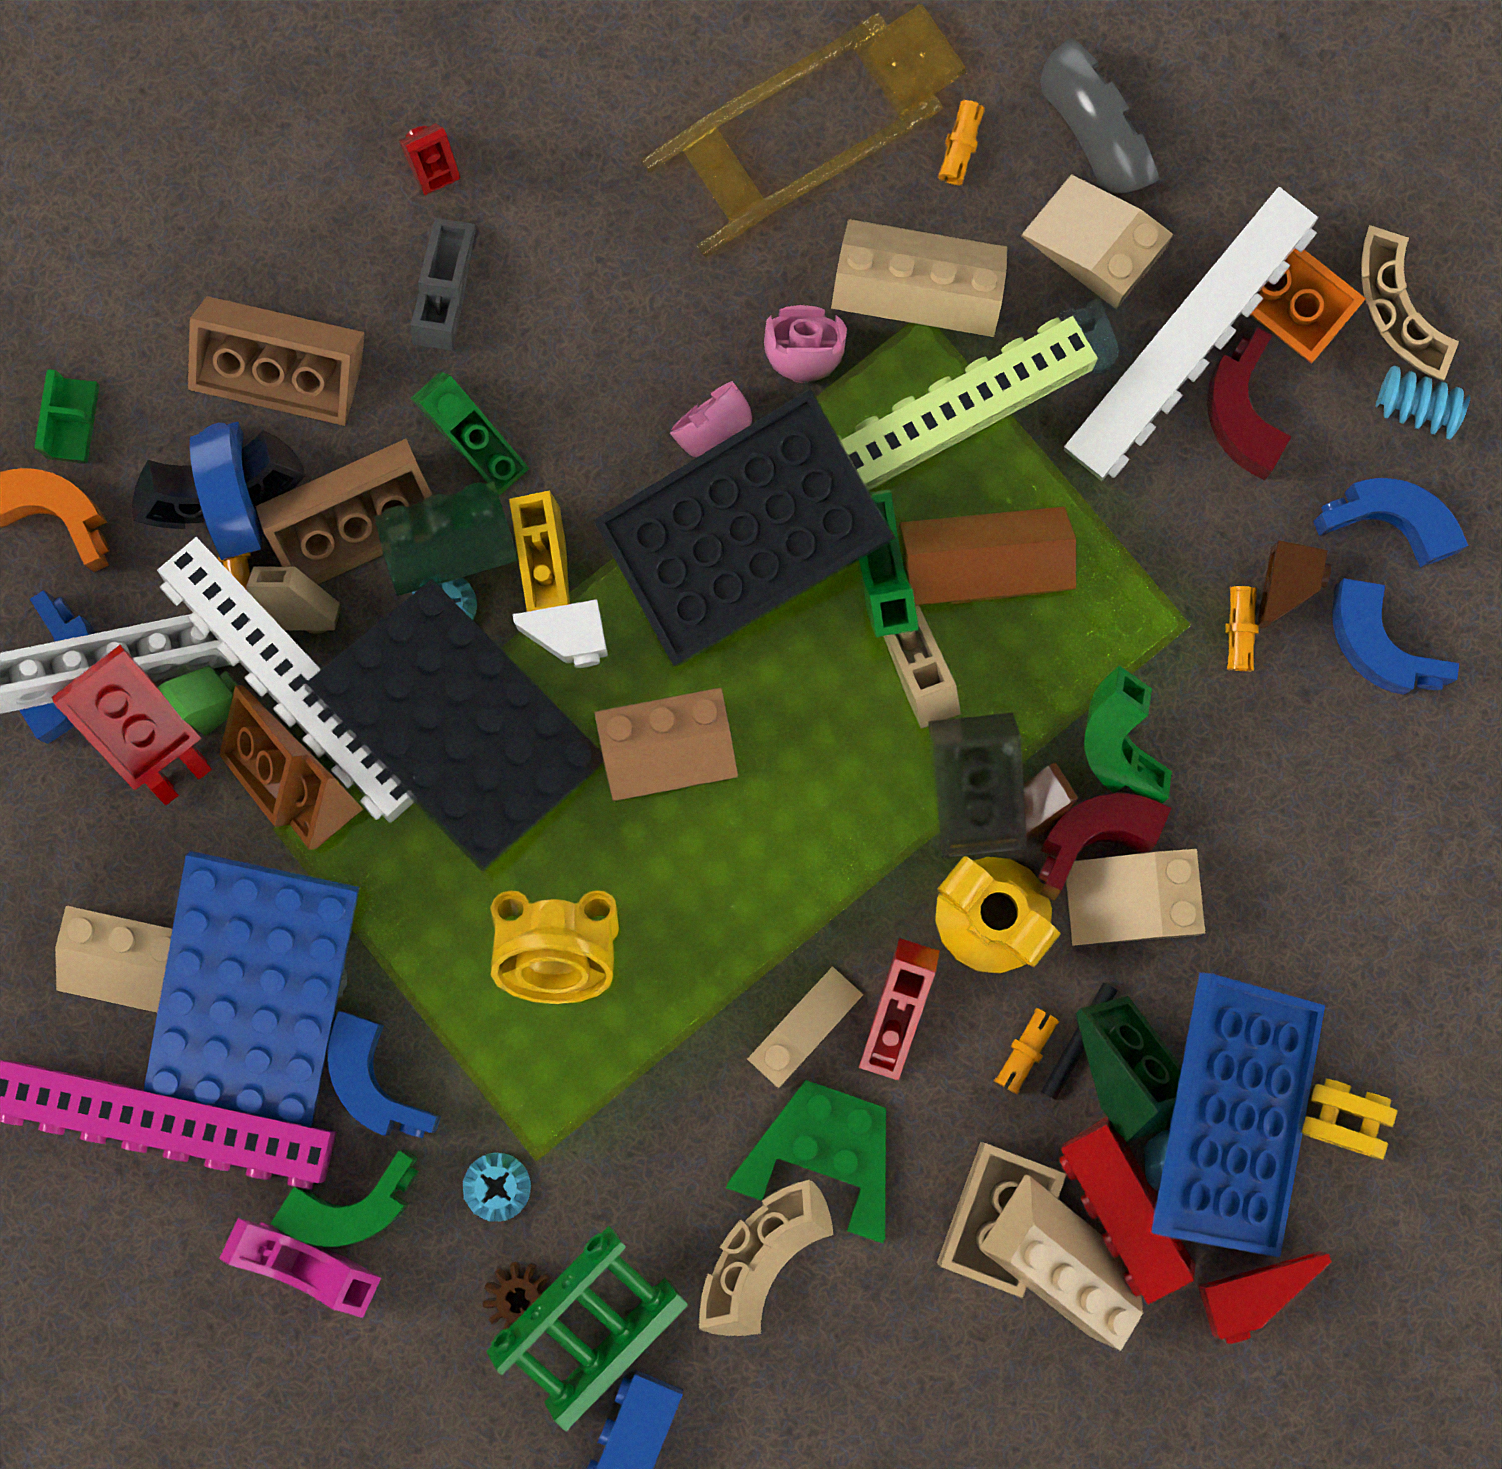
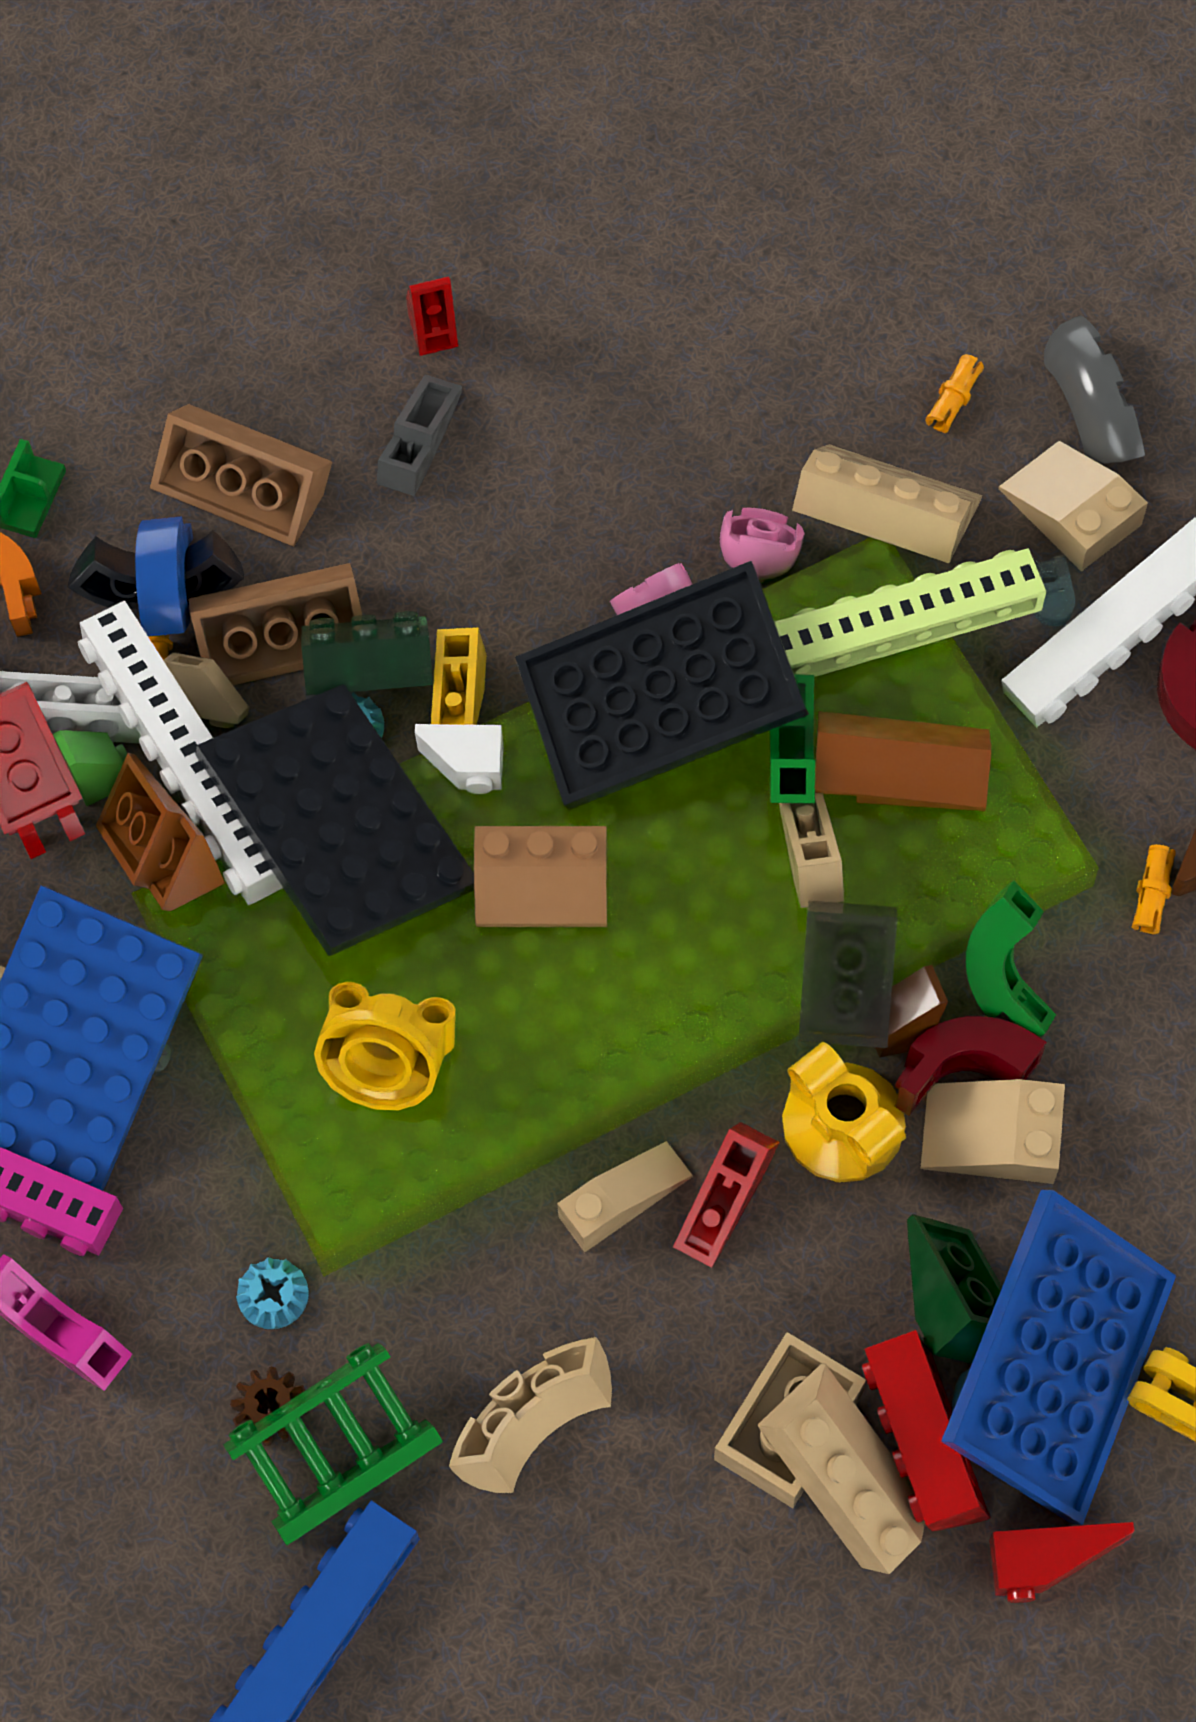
camera: 15 degrees right, 15 degrees down
(331, 1225) = (119, 1295): green arch -> none
(354, 1080) = (154, 1137): blue arch -> none
(469, 431) = (413, 569): green slope -> none
(831, 1137) = (627, 1309): green wing -> none
(905, 60) = (912, 310): clear yellow plate -> none
(1026, 1051) = (851, 1262): light orange pin -> none
(1073, 1050) = (896, 1278): black bar -> none

